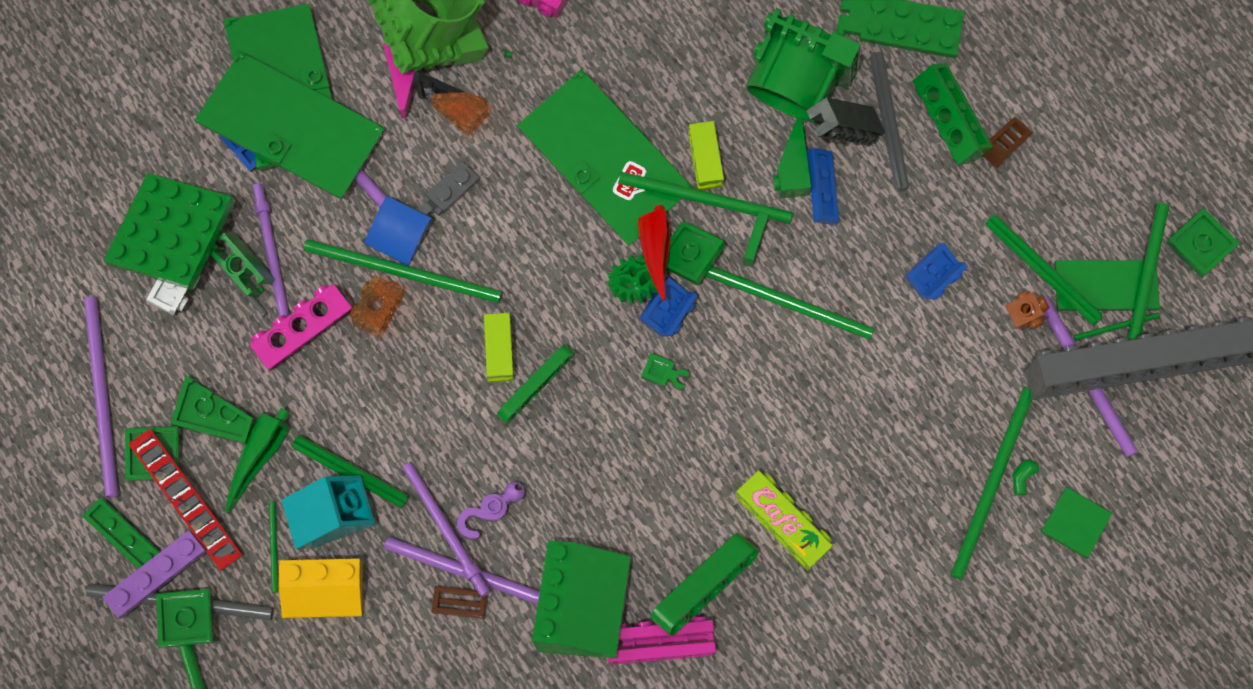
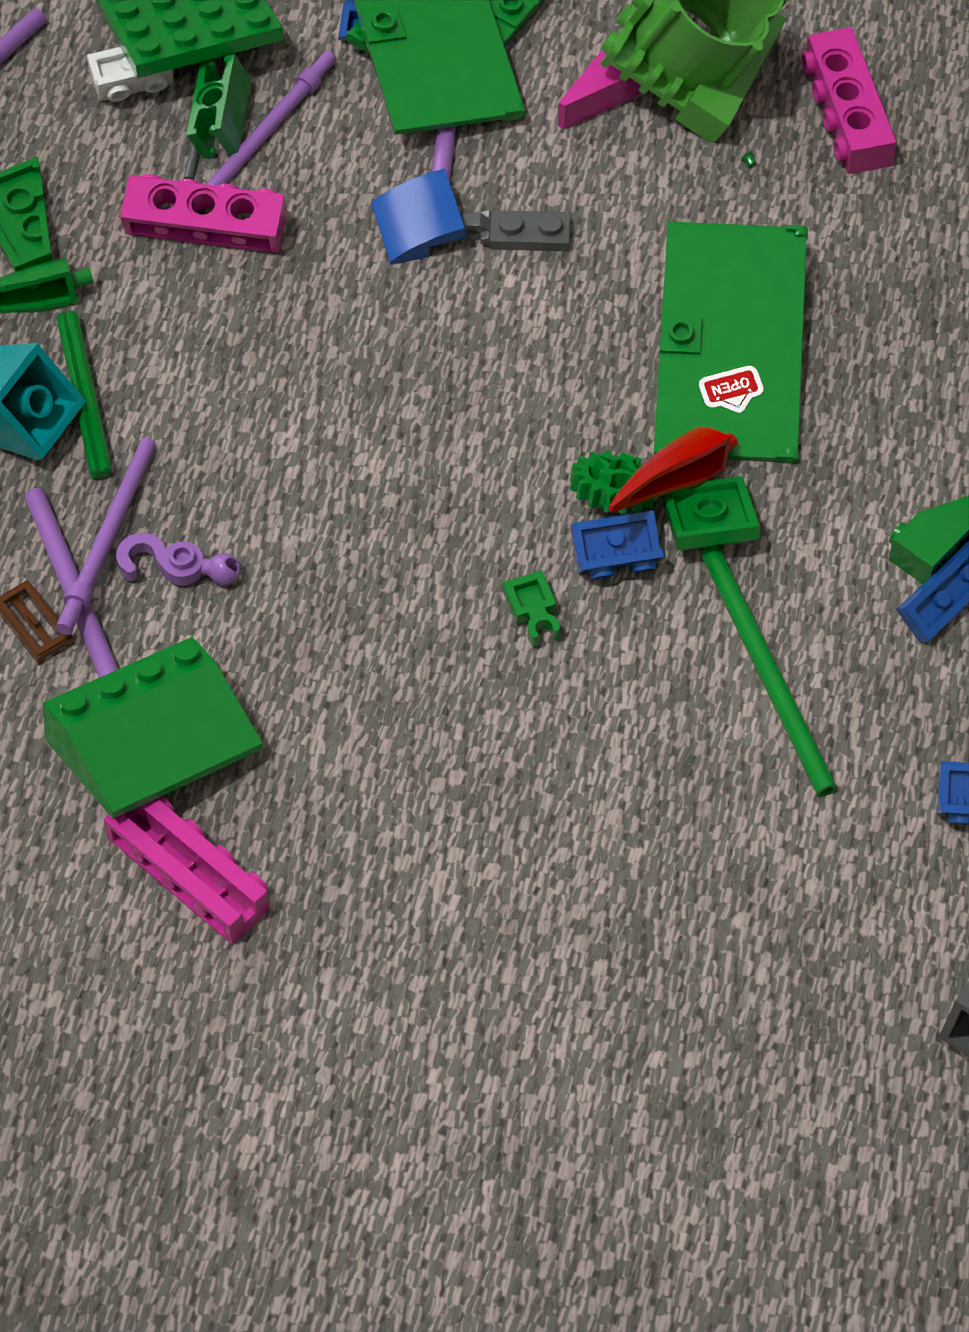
camera: 50 degrees right, 15 degrees down
(376, 321) = (306, 265): clear orange brick -> none
(402, 271) = (379, 263): green piece -> none
(428, 86) = (622, 119): black tile -> none
(461, 110) = (630, 165): clear orange slope -> none
(498, 347) = (382, 416): lime piece -> none
(535, 384) = (419, 486): green beam -> none
(703, 197) = (798, 478): green piece -> none
(704, 584) = (305, 846): green beam -> none
(705, 155) = (849, 436): lime piece -> none
(755, 239) = (804, 568): green tile -> none
(783, 520) = (479, 878): lime brick -> none
(992, 484) = (776, 1087): green piece -> none
(1021, 474) = (827, 1110): green arm -> none
(1076, 522) = (835, 1230): green tile -> none

